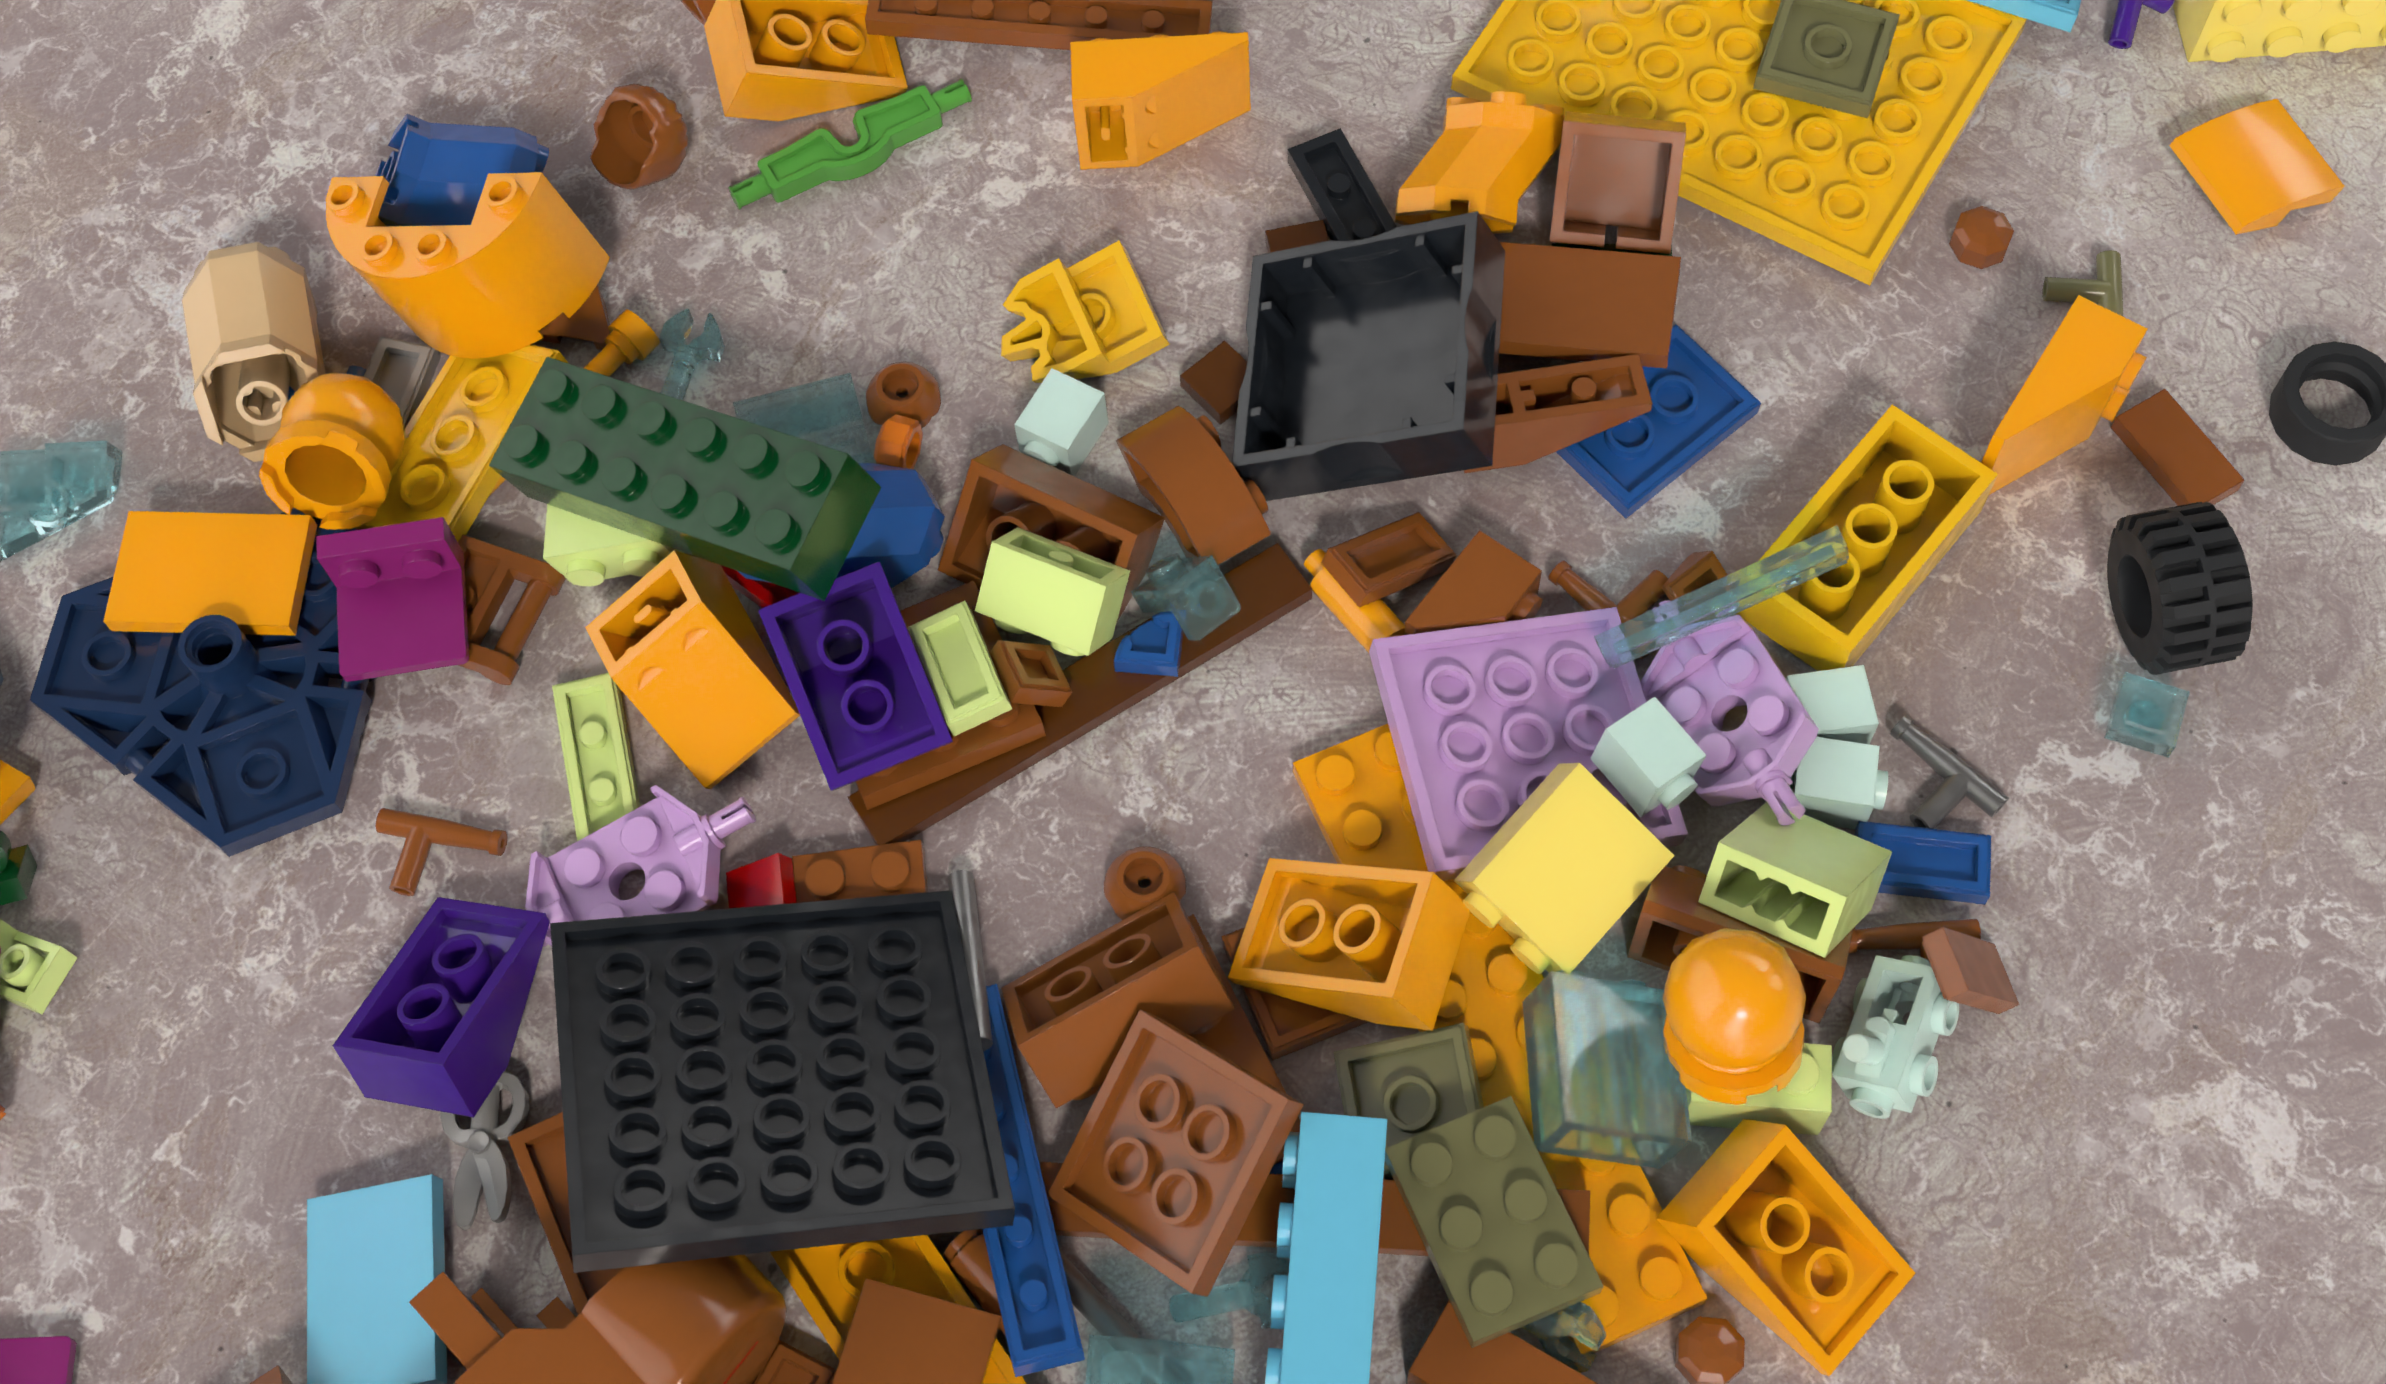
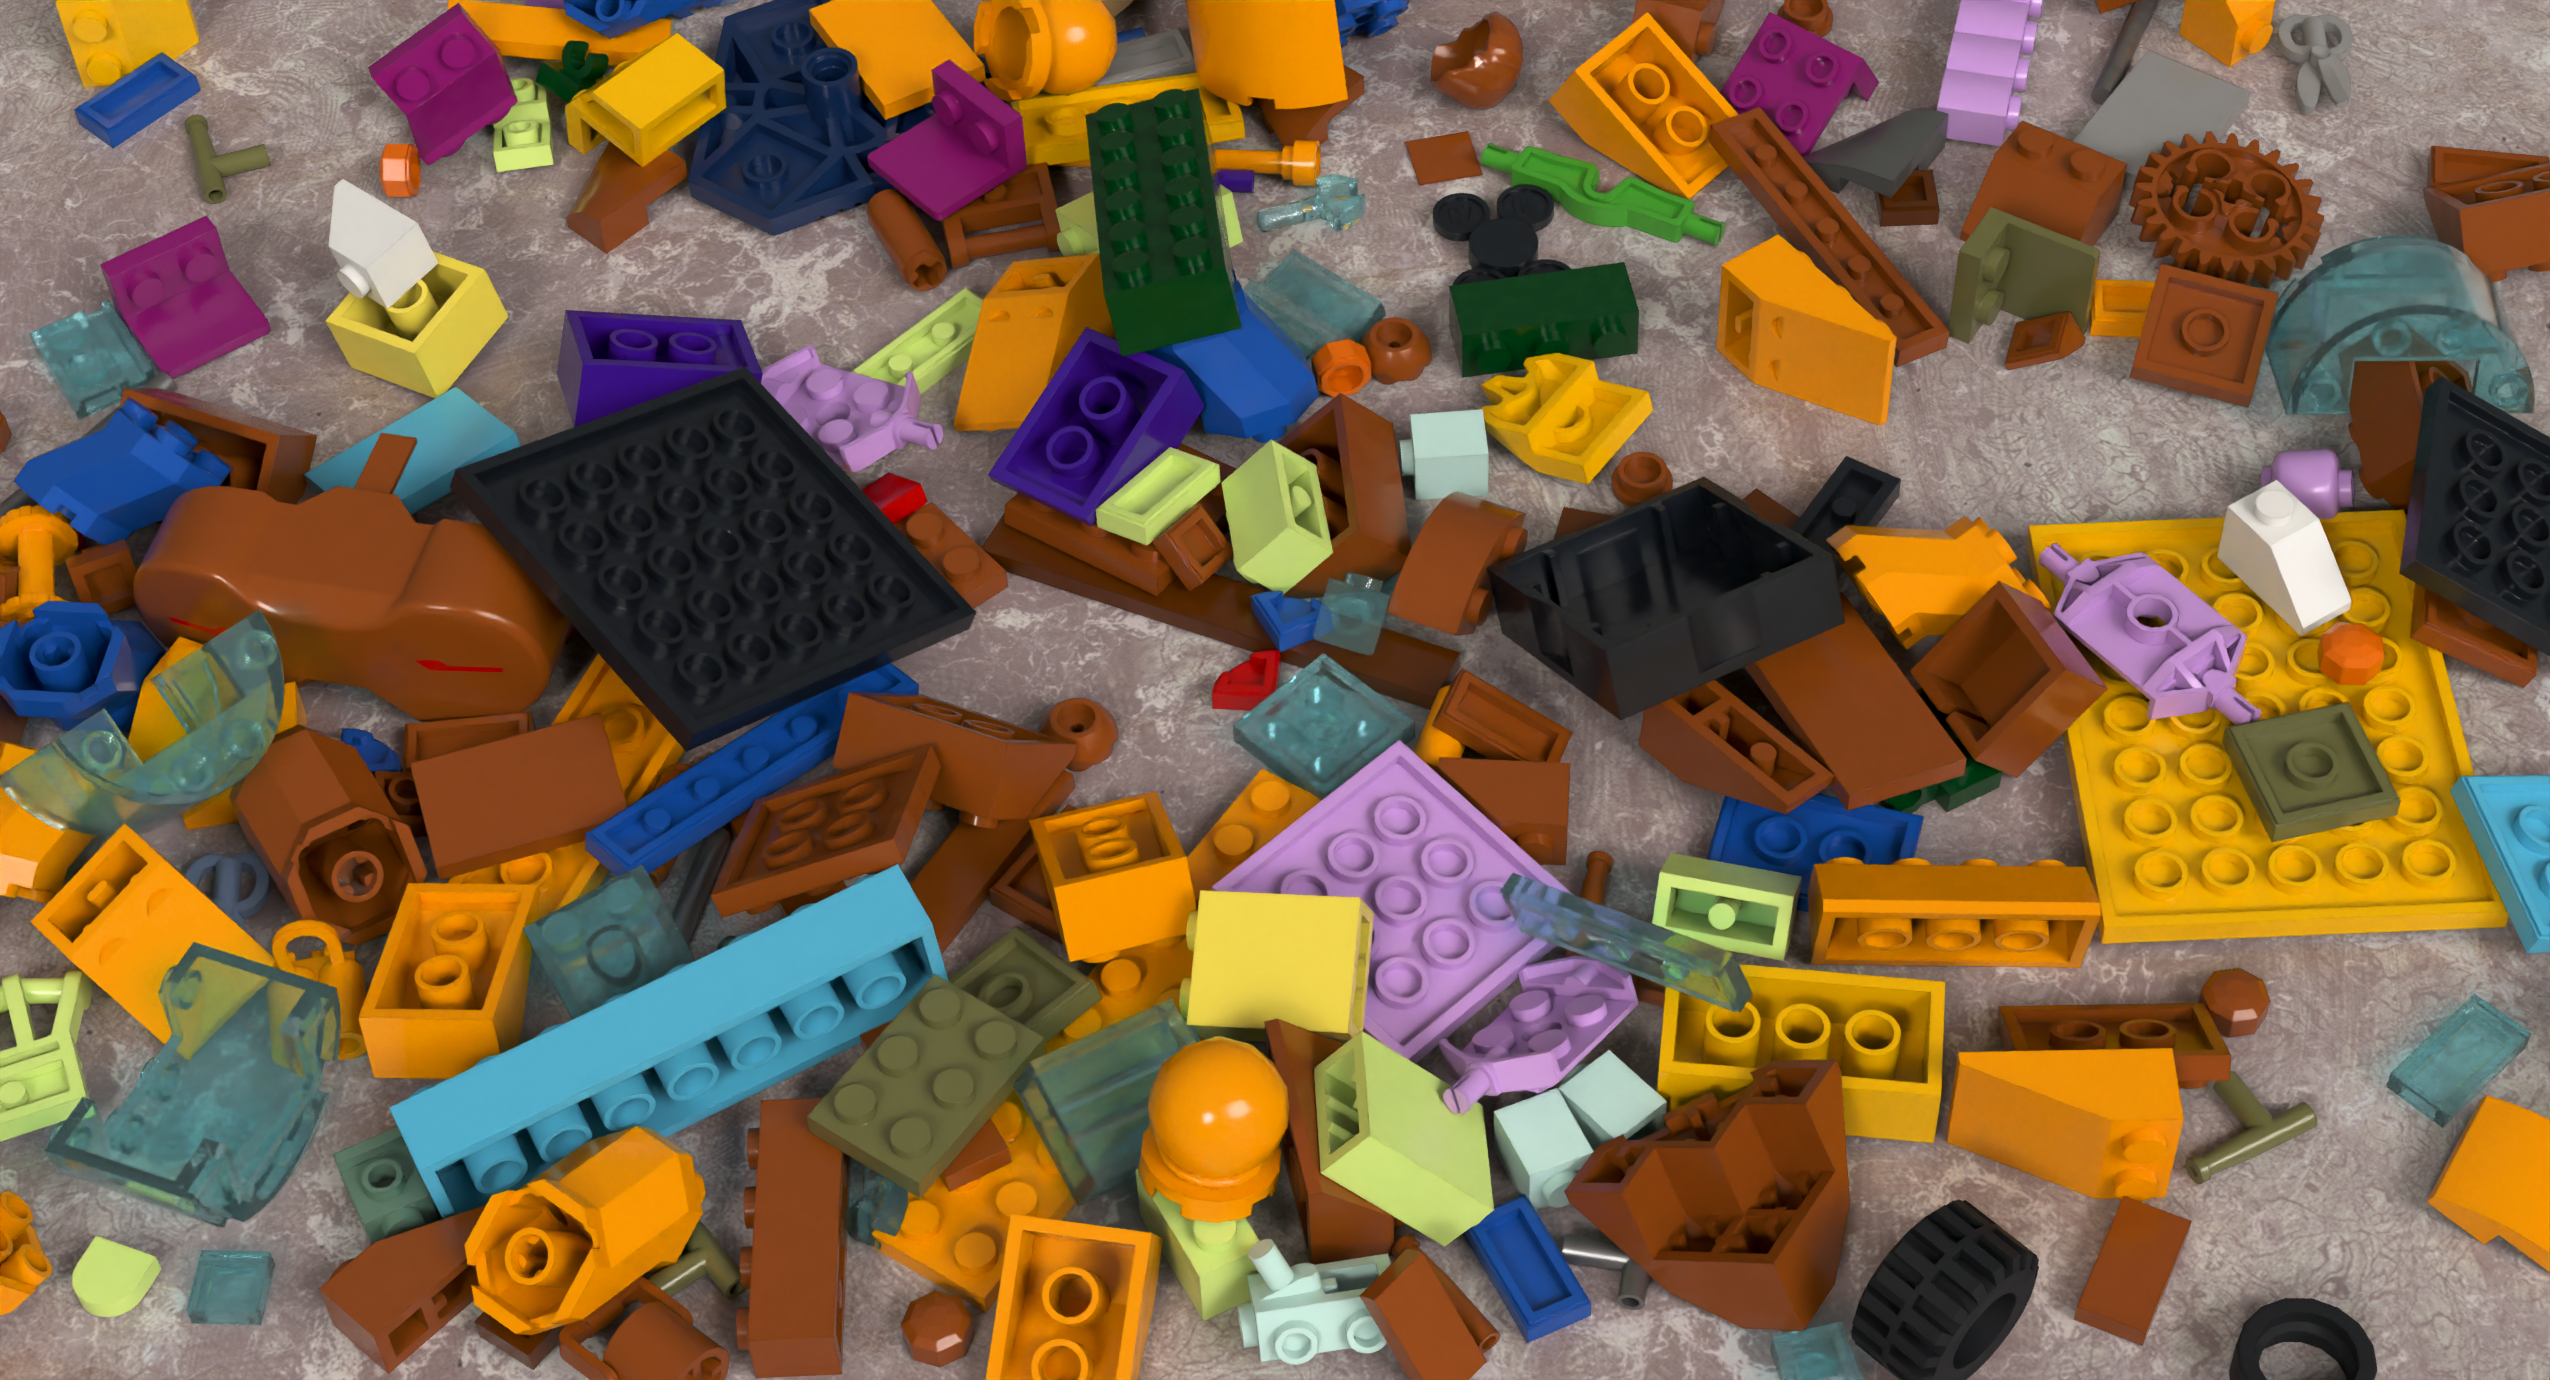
camera: 55 degrees right, 15 degrees down
(95, 826) = (648, 101): none -> yellow piece
(113, 1181) = (376, 246): none -> white slope
(169, 910) = (617, 196): none -> dark orange slope
(202, 1190) = (426, 333): none -> light yellow brick
(421, 833) = (789, 288): dark orange piece -> none
(451, 702) = (906, 240): none -> dark orange piece
(704, 232) = (1443, 158): none -> dark orange sticker
(853, 251) = (1500, 245): none -> black piece
(964, 898) = (927, 650): flat silver bar -> none
(968, 268) = (1563, 312): none -> dark green brick
(1186, 718) = (1248, 682): none -> red tile
(1192, 305) = (1640, 478): none -> dark orange plate
(1287, 692) = (1322, 727): none -> clear light blue plate
(1587, 76) = (2176, 666): none -> lavender plate
(1649, 758) = (1438, 981): light aqua brick -> none
(1690, 509) = (1728, 905): none -> yellowish green brick
(1803, 359) = (1950, 914): none -> light orange slope
(1979, 672) = (1734, 1197): none -> dark orange brick
(1990, 335) = (2184, 1027): none -> dark orange plate
(2120, 136) = (2458, 1060): none -> clear light blue tile

